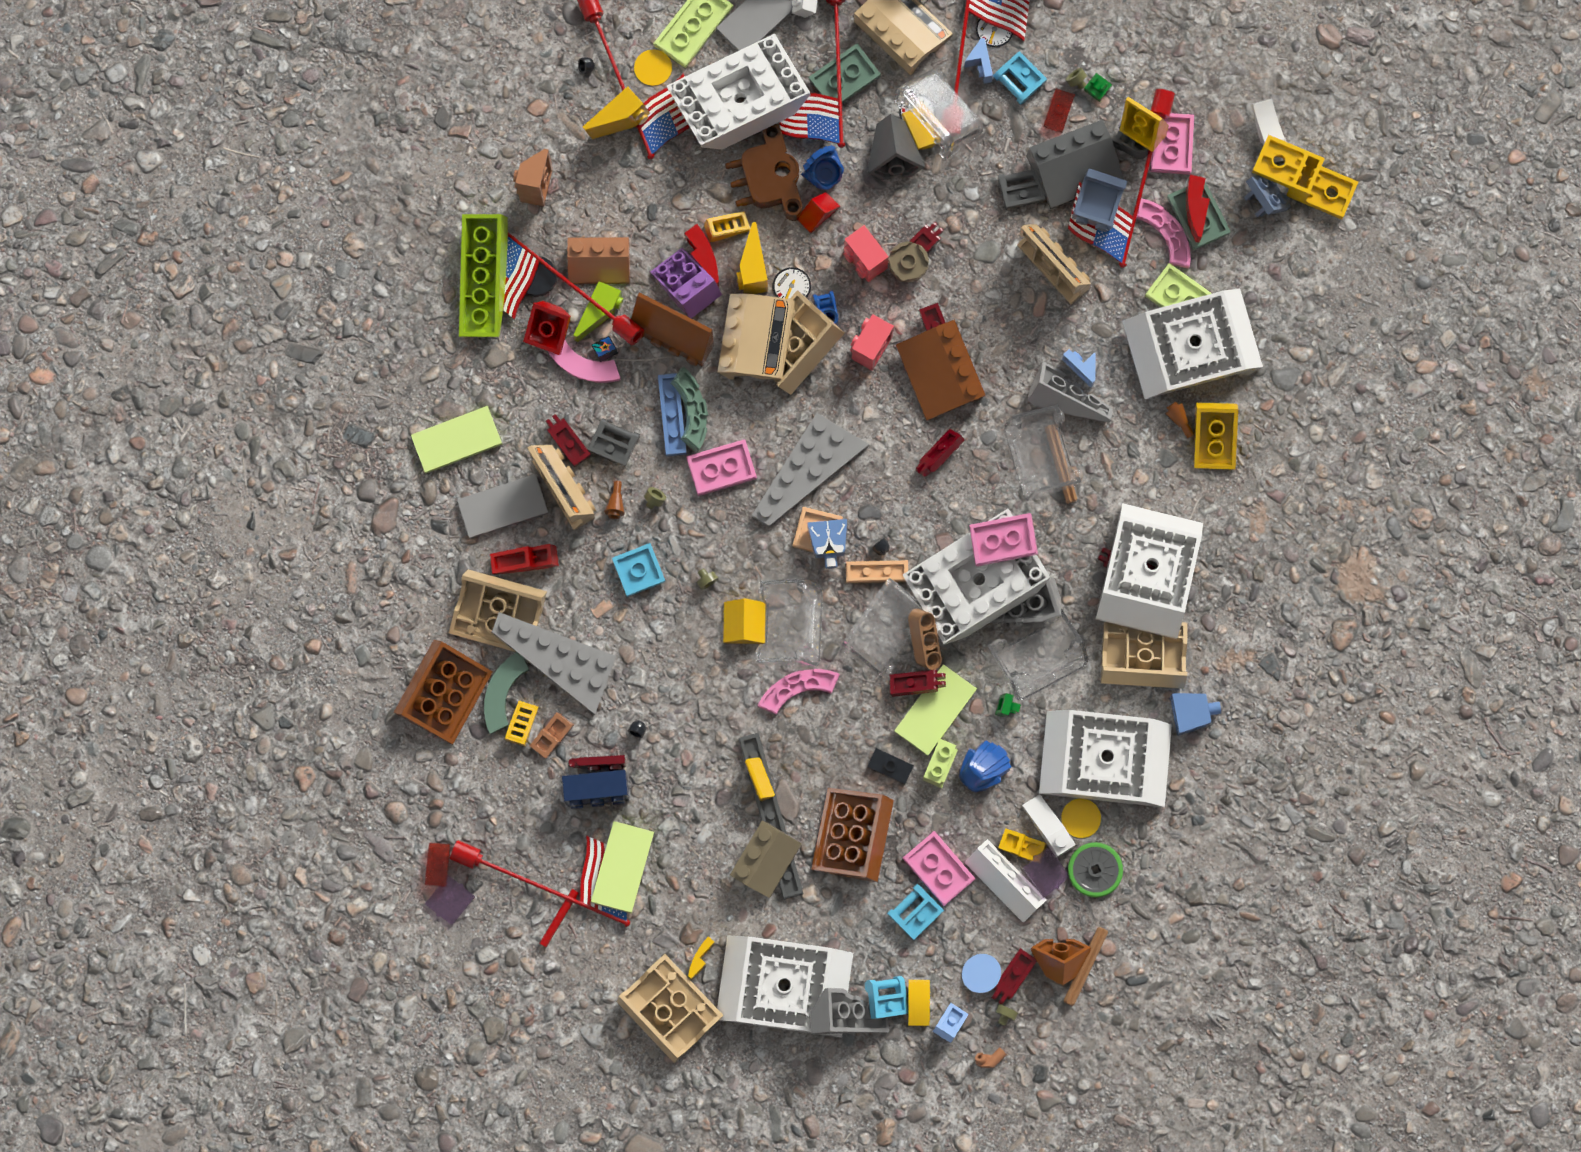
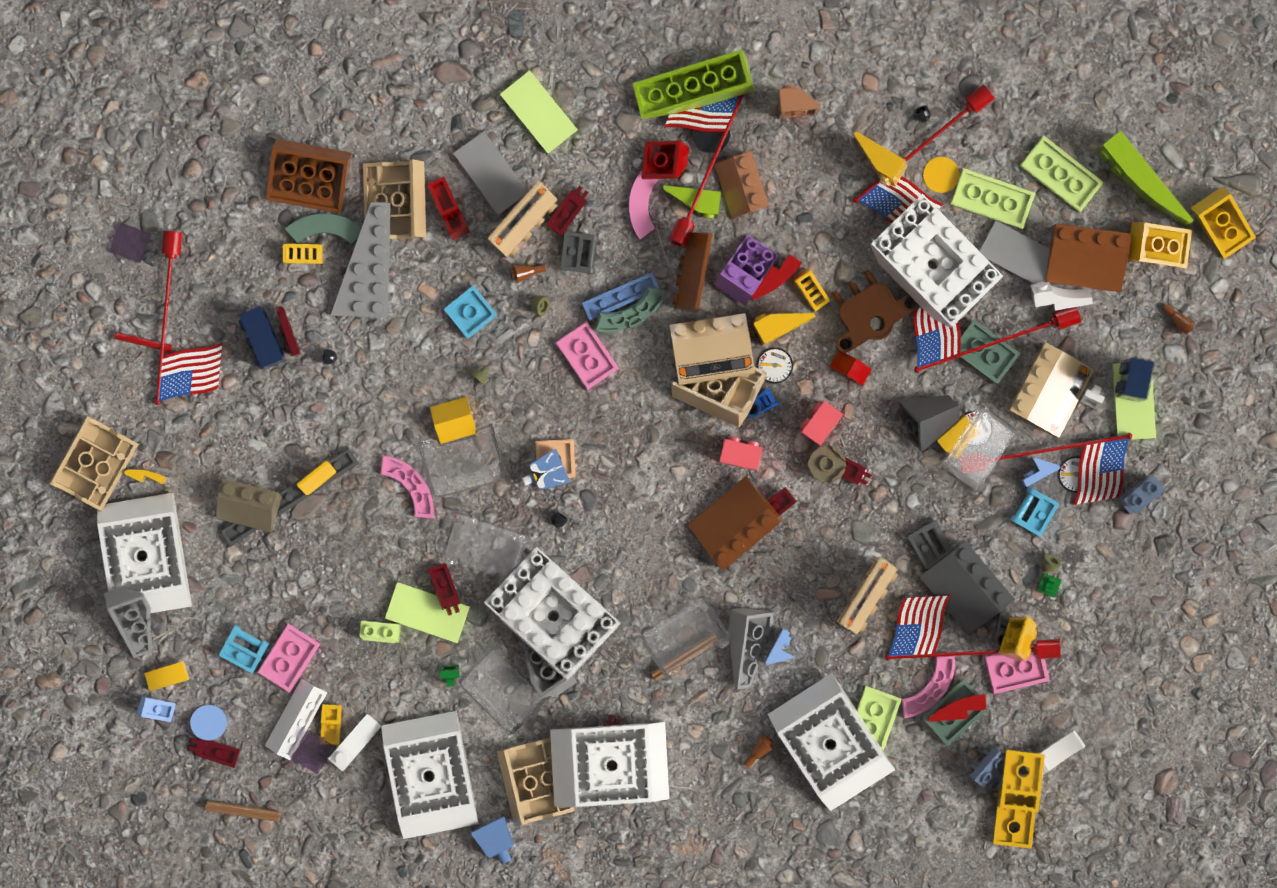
camera: 70 degrees right, 10 degrees up
(437, 864) = (156, 222): clear red plate -> none
(551, 735) = (300, 283): nougat slope -> none
(604, 348) = (662, 216): tile -> none
(622, 867) = (203, 382): yellowish green tile -> none
(812, 462) = (618, 435): light grey wing -> none
(823, 168) = (889, 361): blue hair -> none
(852, 834) = (294, 574): dark orange slope -> none
(875, 571) = (535, 522): light nougat tile -> none
(889, 1004) = (155, 651): medium azure plate -> none
(890, 766) = (365, 588): black plate -> none
(929, 647) = (484, 584): medium nougat beam -> none
(939, 452) = (659, 545): dark red hinge -> none
(984, 766) = (389, 671): blue hair -> none
(989, 1061) = (135, 752): nougat arm -> none
(1003, 539) = (589, 627): bright pink tile -> none
(1006, 1013) = (179, 754): olive tile -> none
(1059, 110) = (1015, 556): clear red plate -> none
(1060, 960) = (241, 787): dark orange slope -> none
(1081, 818) = (371, 768): yellow sticker -> none
(1082, 875) = (339, 785): dark grey wheel -> none
(1098, 200) = (936, 618): sand blue panel -> none
(1215, 435) = (753, 787): yellow slope -> none

